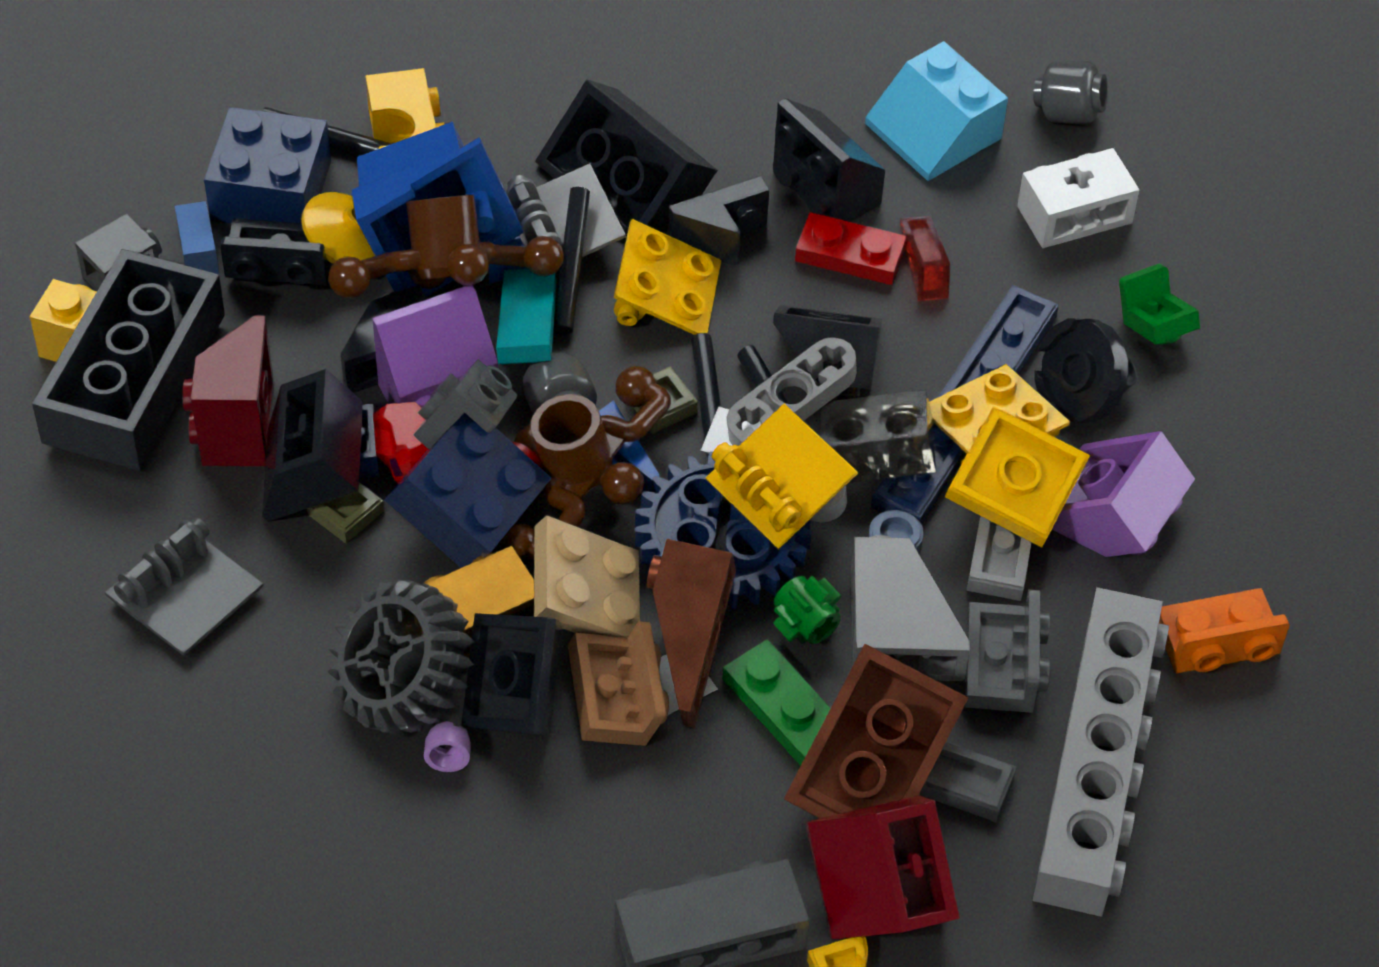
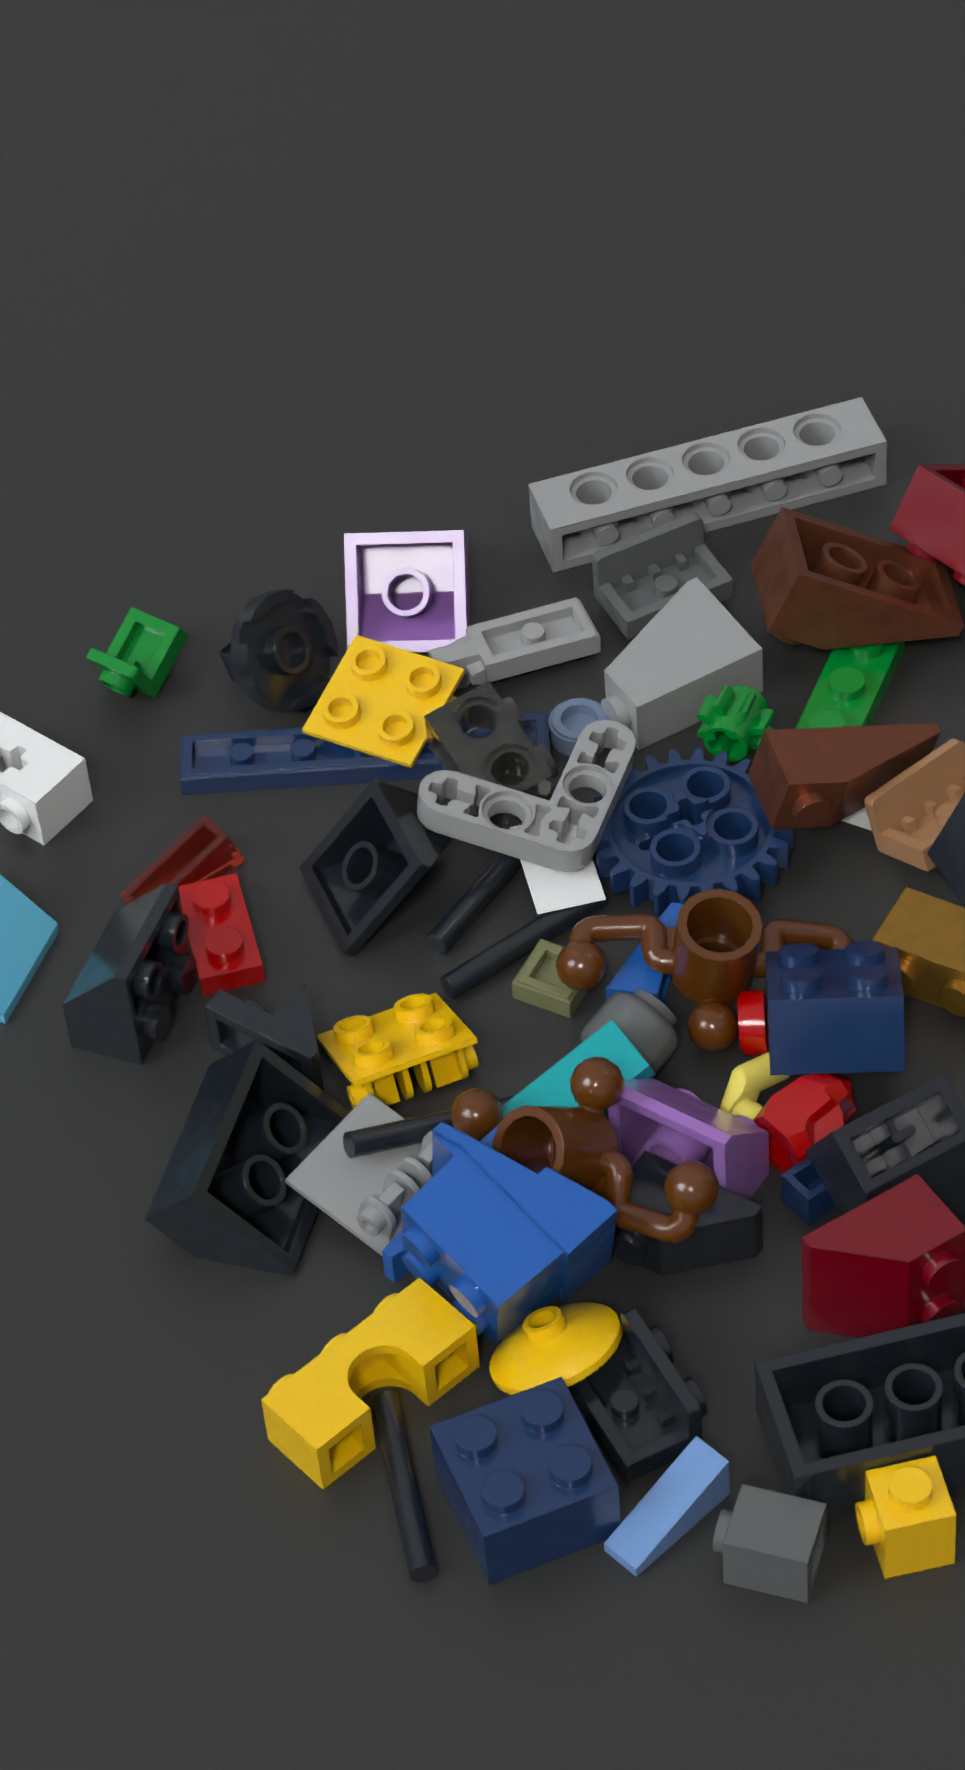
camera: 115 degrees left, 5 degrees down
(480, 393) = (756, 1036): dark grey bracket -> none
(585, 580) = (854, 878): tan plate -> none
(779, 475) = (629, 761): yellow hinge -> none
(1017, 476) = (463, 631): yellow tile -> none
(1222, 631) = (497, 466): orange bracket -> none

